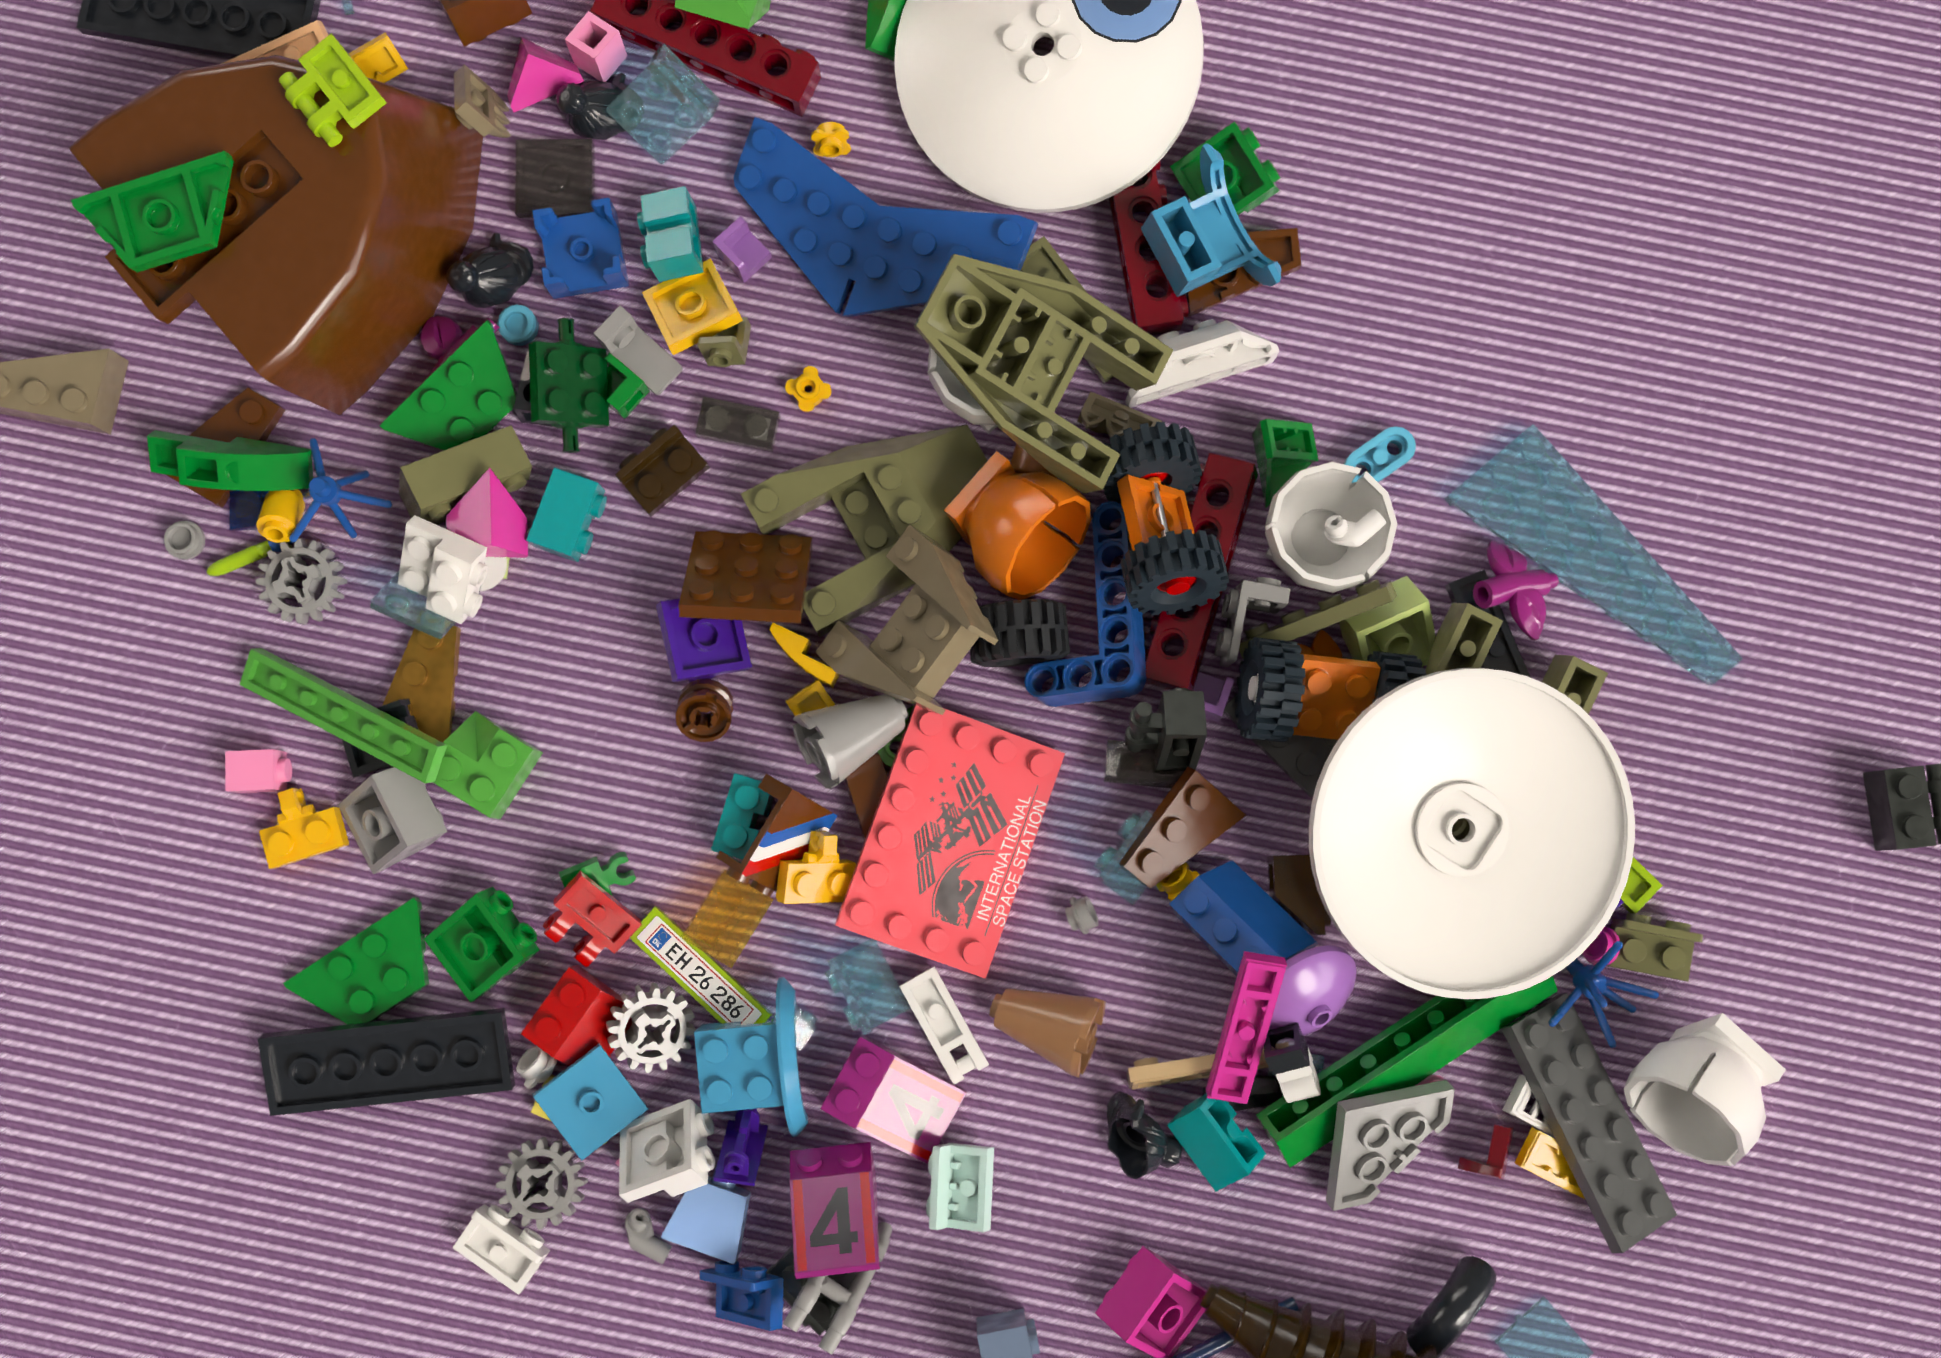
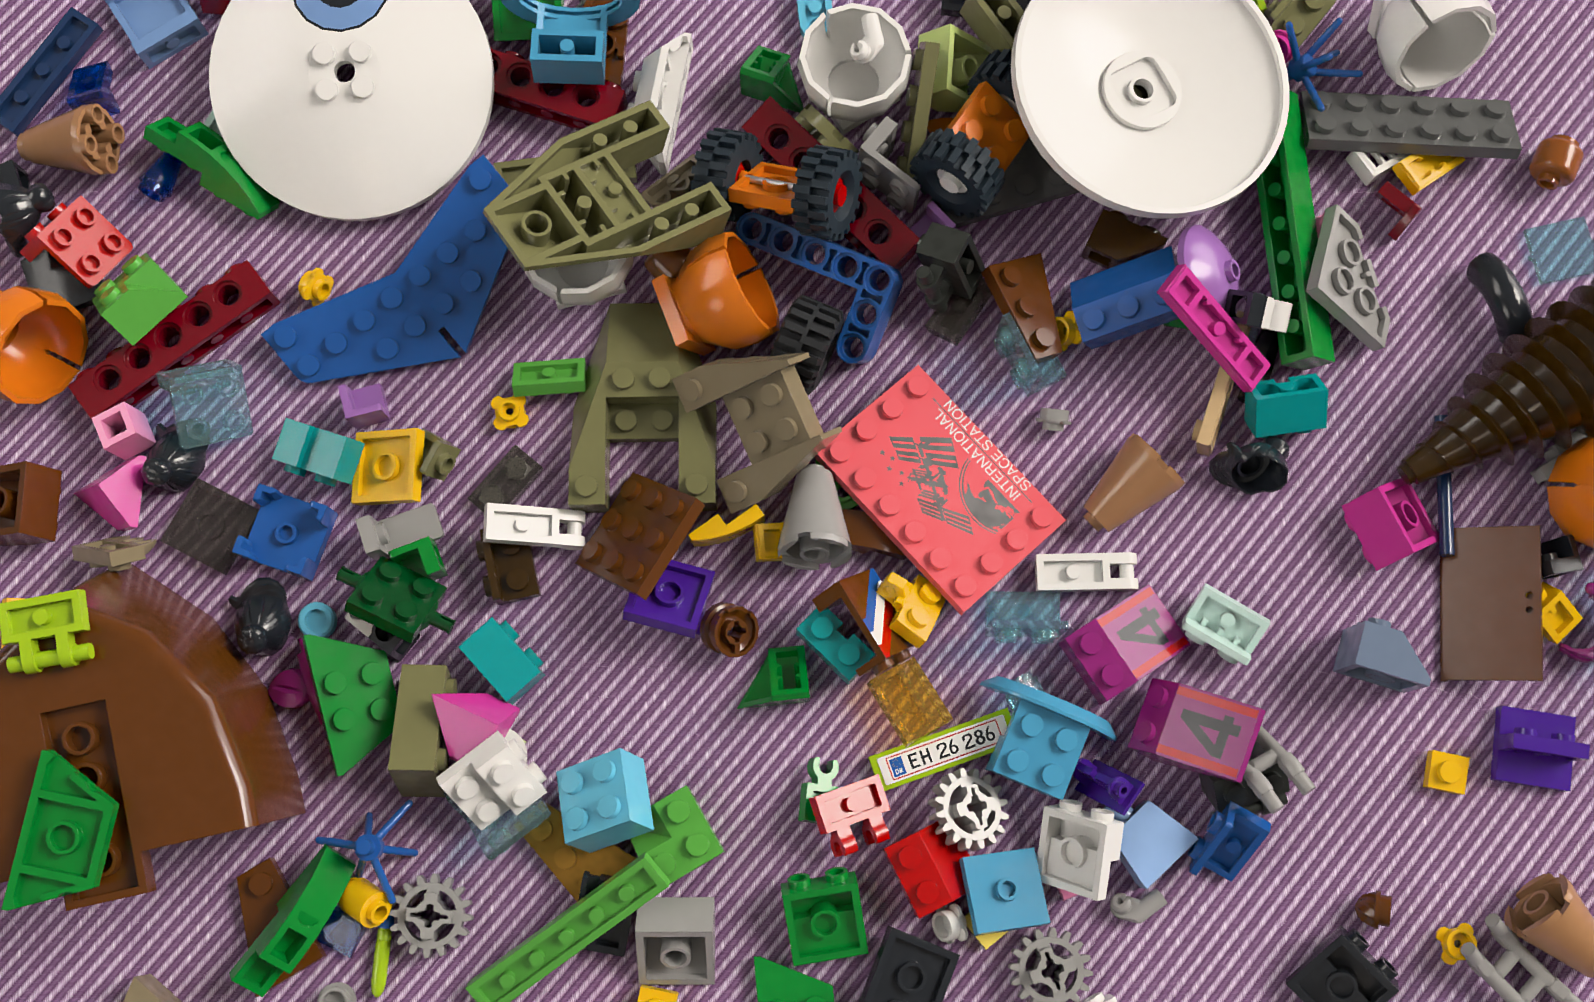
camera: 60 degrees left, 5 degrees down
(479, 681) = (604, 800): none -> medium azure brick
(685, 784) = (779, 680): none -> green slope
(705, 472) = (533, 526): none -> white plate
(860, 407) = (549, 377): none -> bright green plate
(1247, 545) = (822, 129): none -> olive plate
(1633, 1296) = (1556, 162): none -> dark orange head

